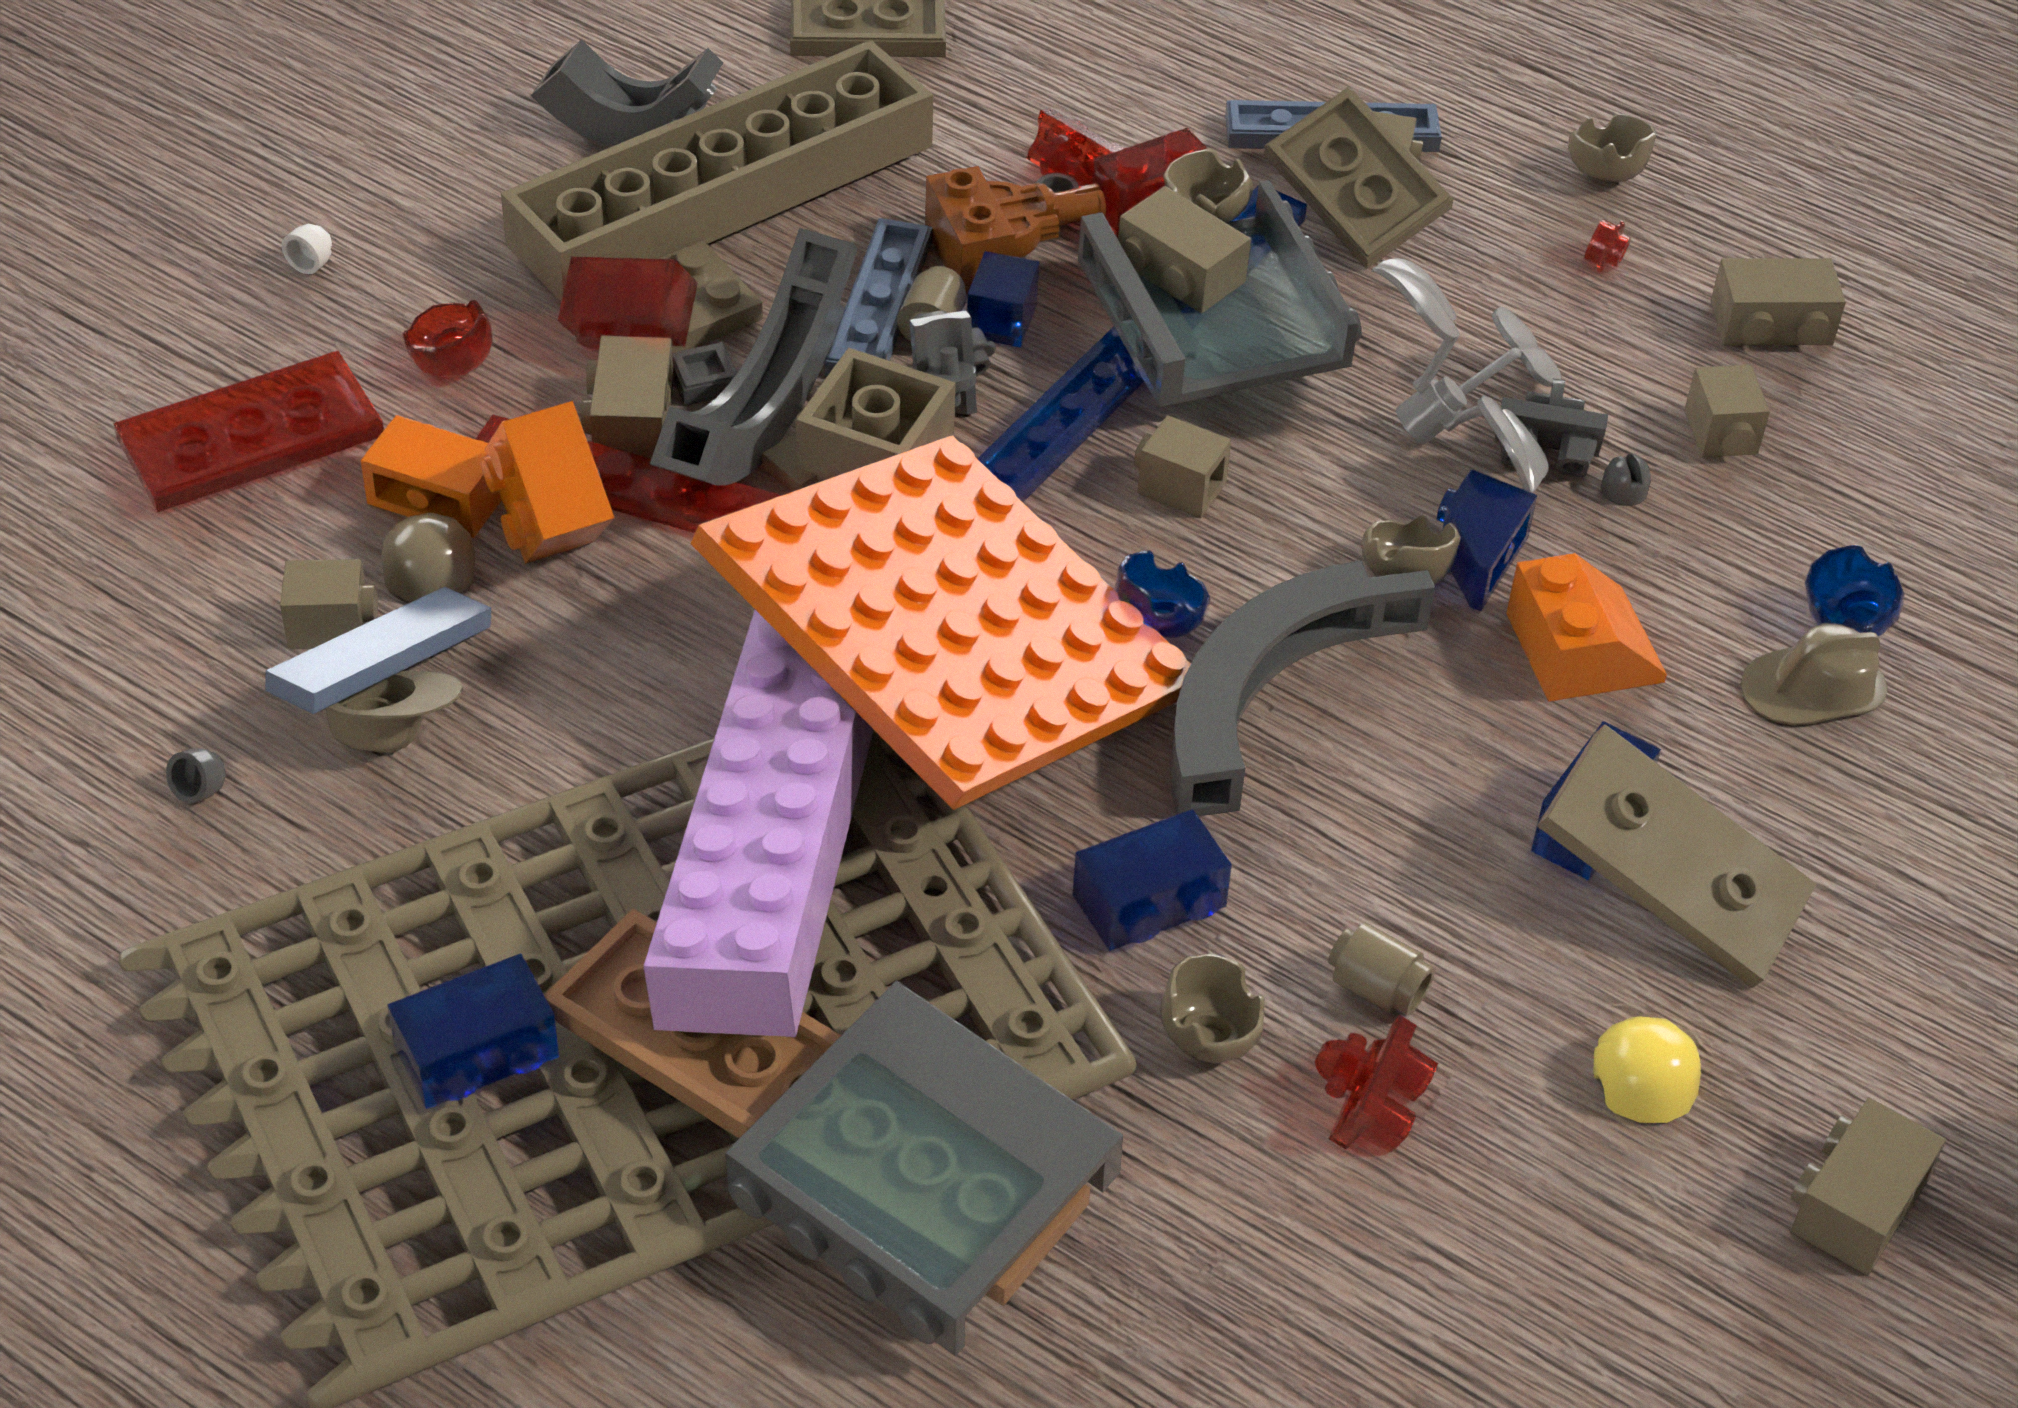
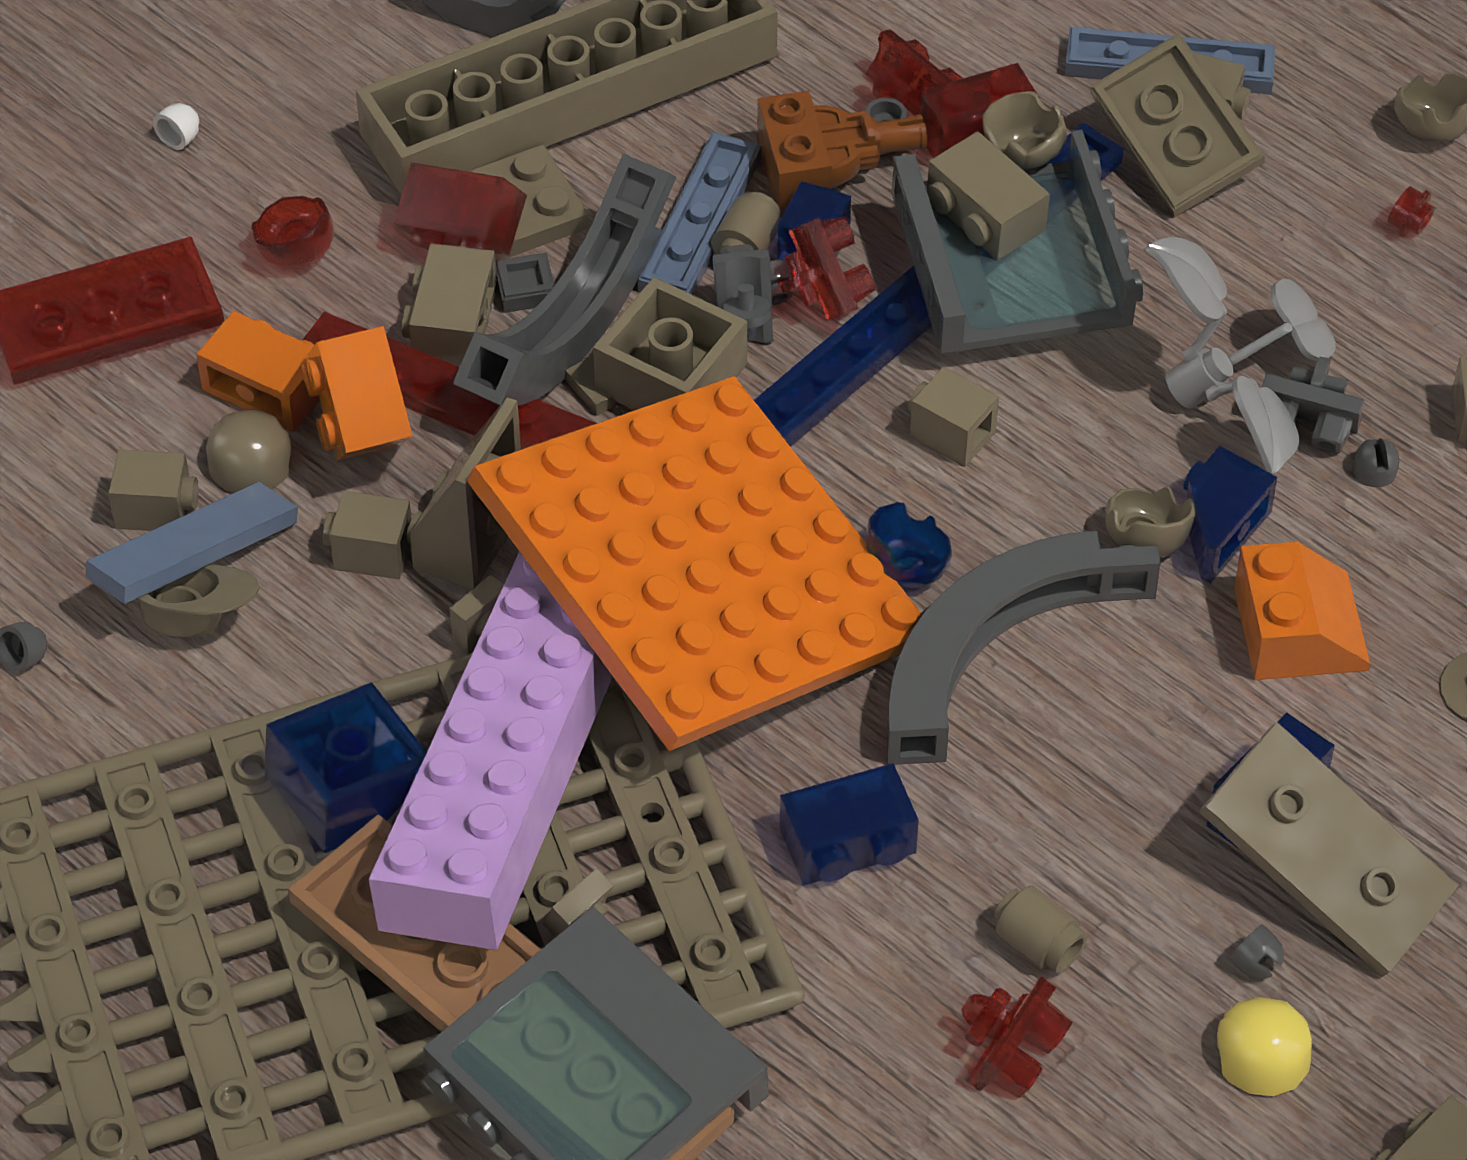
camera: 10 degrees right, 5 degrees up
(473, 1031) = (227, 913): clear blue brick -> none
(574, 629) = (368, 534): none -> dark tan brick
(585, 857) = (342, 763): none -> clear blue slope
(679, 592) = (456, 531): none -> dark tan slope
(704, 700) = (472, 613): none -> dark tan plate
(873, 982) = (588, 893): none -> dark tan plate
(1019, 333) = (818, 272): none -> clear red hips
(1211, 1009) = (878, 952): dark tan hair -> none
(1615, 971) = (1255, 951): none -> dark grey hinge

